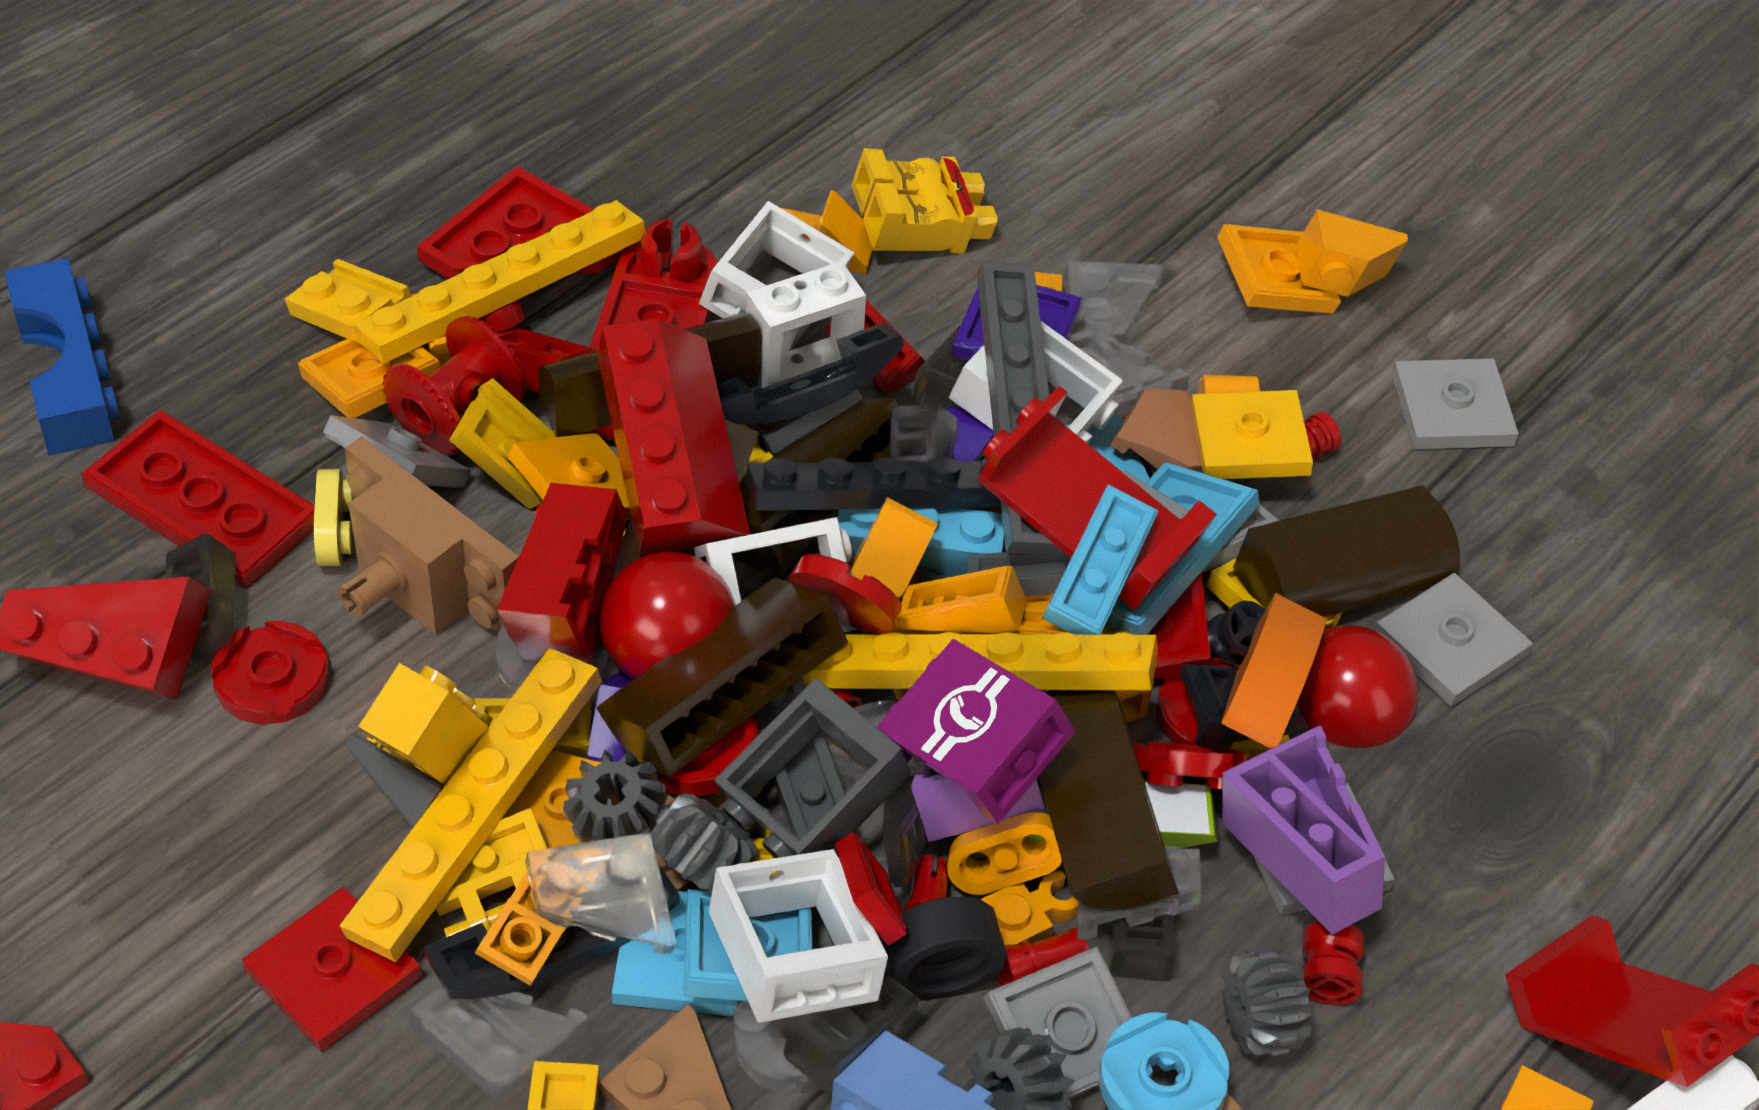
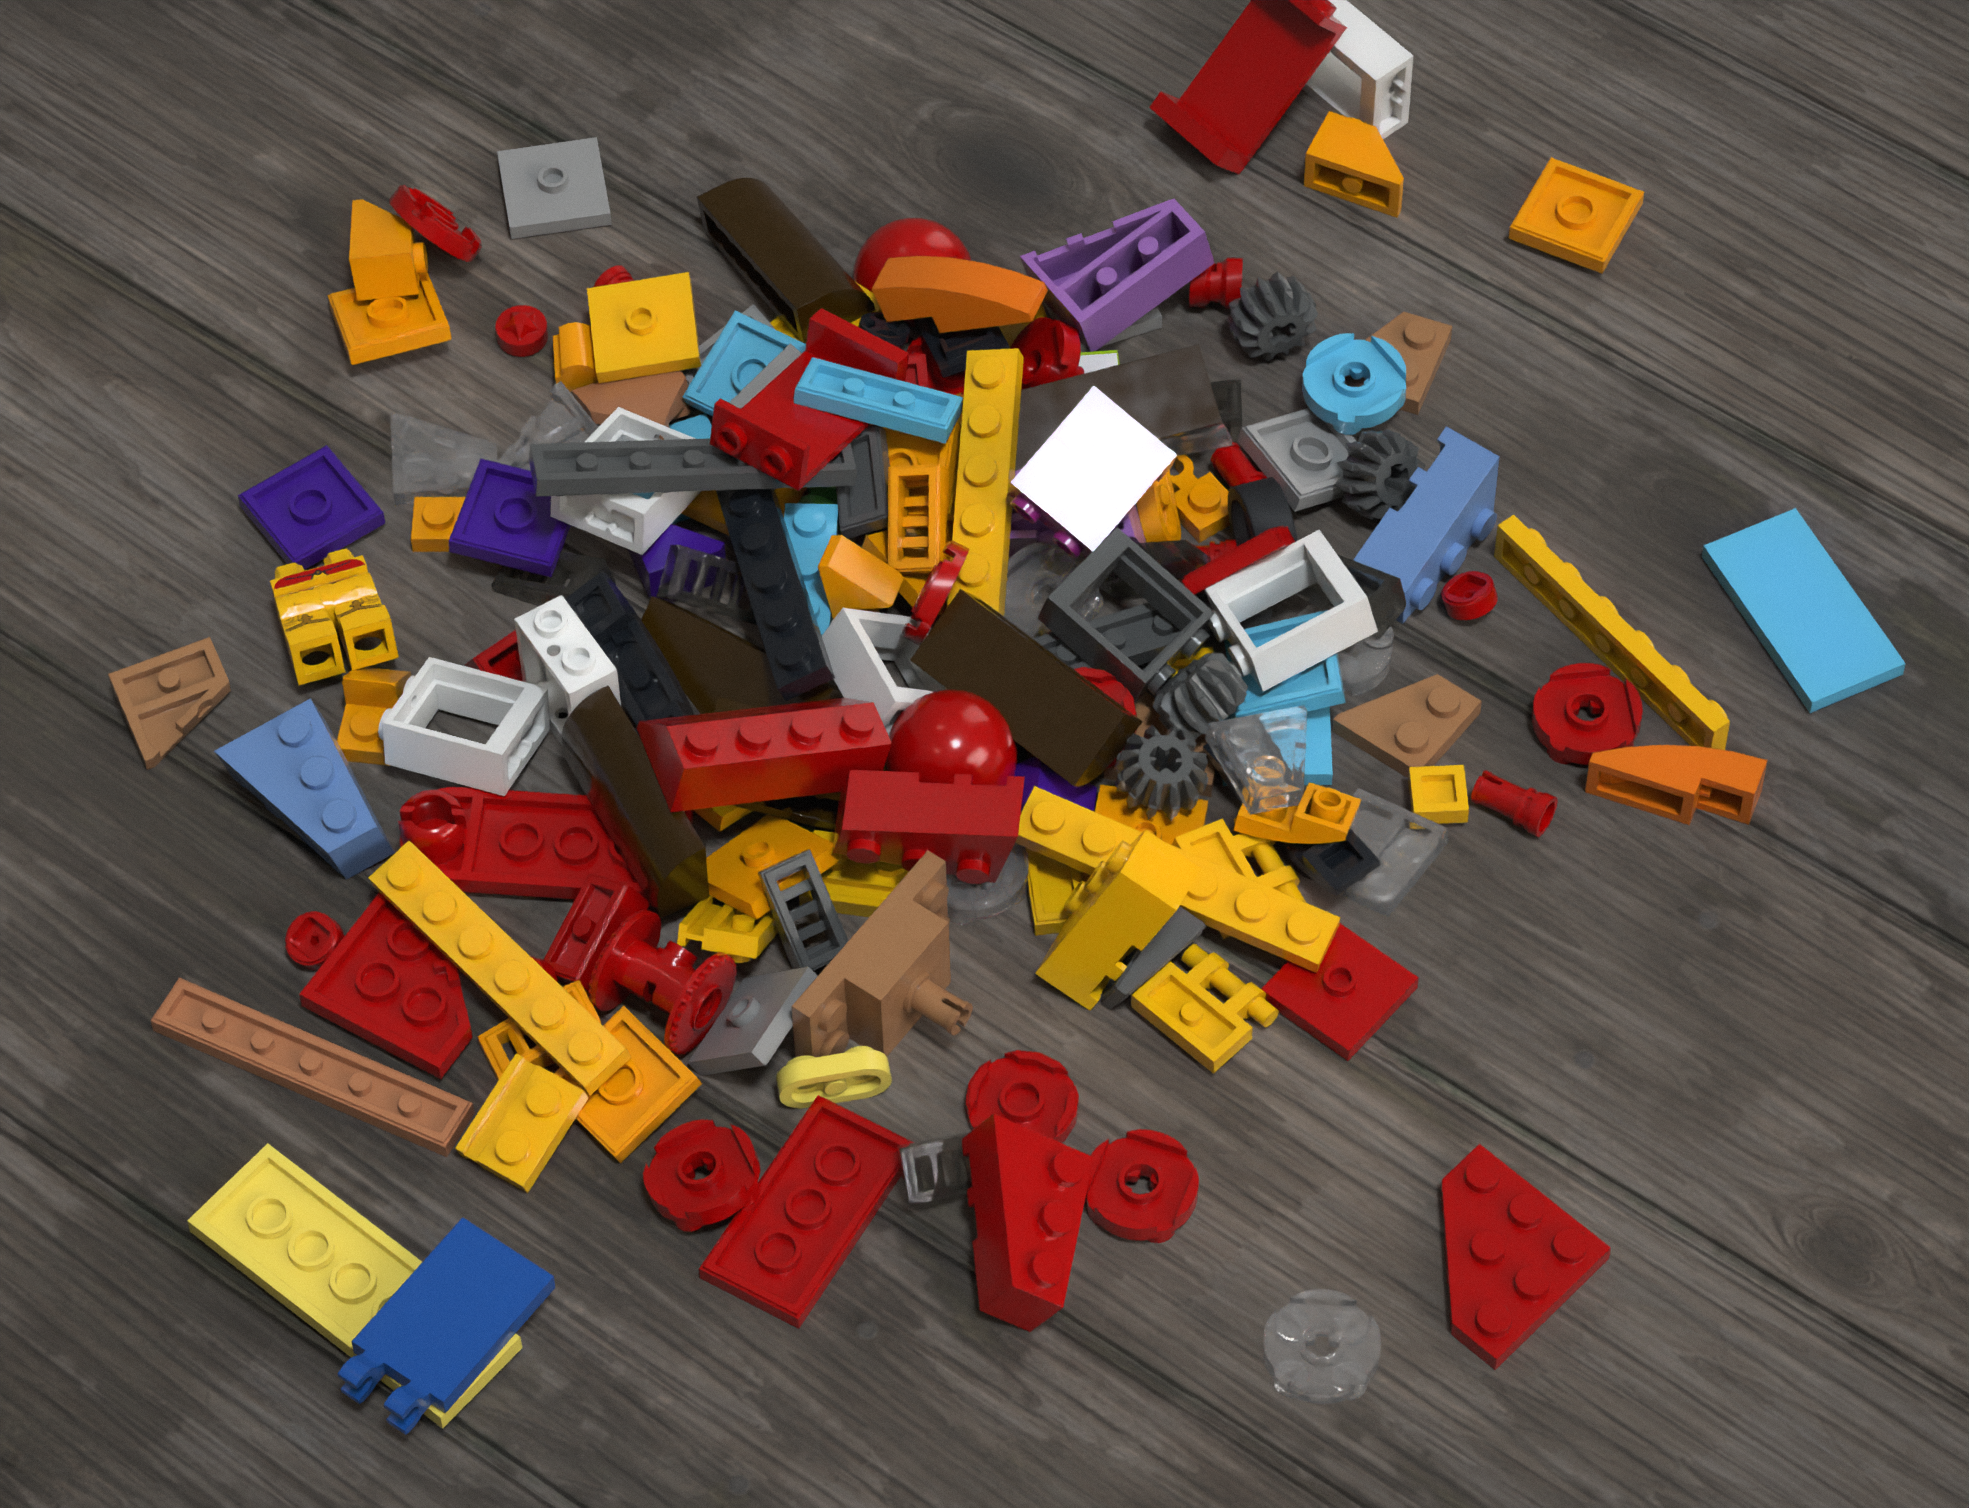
camera: 90 degrees left, 5 degrees up
(69, 395) = (701, 1344): blue arch -> none
(140, 781) = (1147, 1215): none -> red plate
(145, 225) = (445, 1324): none -> blue tile
(217, 192) = (315, 1255): none -> light yellow plate
(274, 425) = (707, 1199): none -> red plate
(325, 820) = (1196, 1018): none -> yellow plate
(453, 183) = (313, 1067): none -> nougat tile
(485, 498) = (829, 921): none -> dark grey slope
(580, 183) = (312, 939): none -> red tile
(726, 177) = (309, 785): none -> medium blue wedge
(851, 110) = (169, 696): none -> medium nougat wing
(1053, 208) = (311, 508): none -> dark purple plate
(1271, 365) = (521, 330): none -> red tile
(1381, 291) = (435, 223): none -> red tile
(1454, 639) = (848, 198): light grey plate -> none

